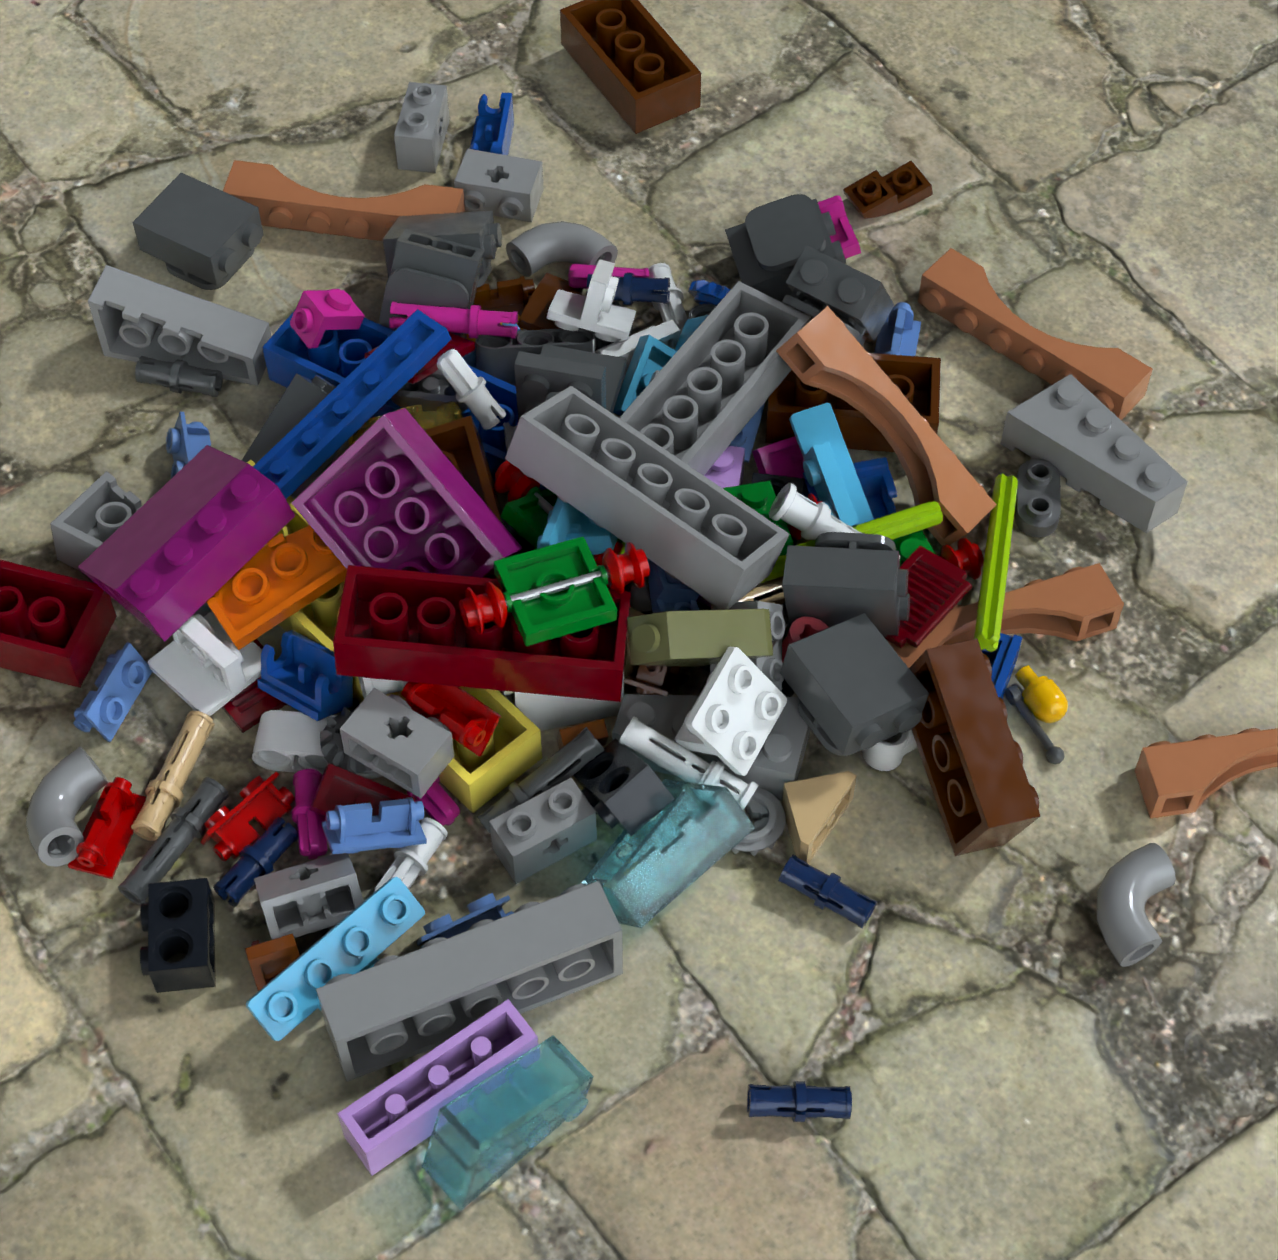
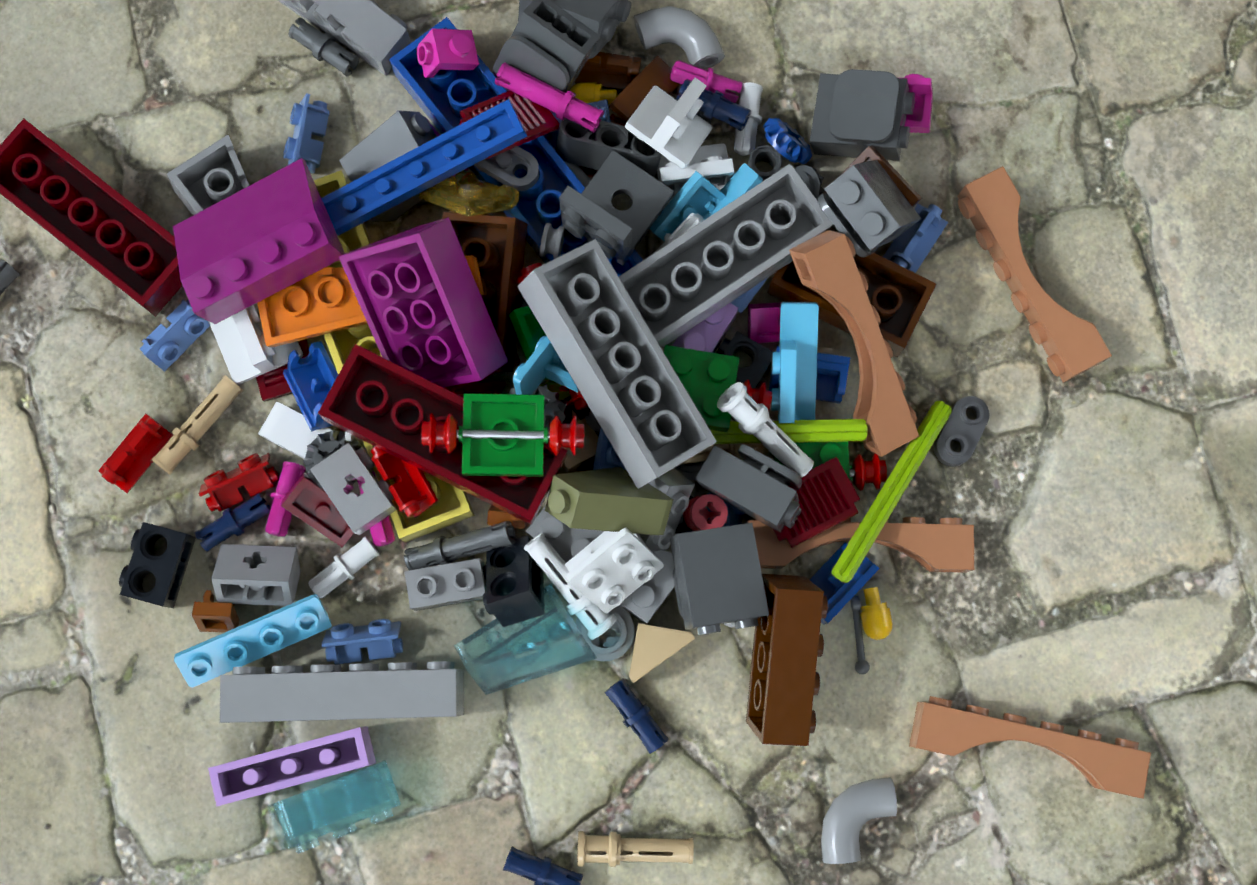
camera: 20 degrees right, 25 degrees up
(55, 804) = (101, 420): light grey cylinder -> none
(185, 826) = (178, 482): dark grey pin -> none
(356, 830) = (319, 542): medium blue hinge -> none
(470, 389) = (530, 182): white axle -> none
(874, 1041) = (613, 849): none -> tan pin
(884, 195) = (984, 75): reddish brown slope -> none
(1095, 453) = (1025, 412): light grey wedge -> none

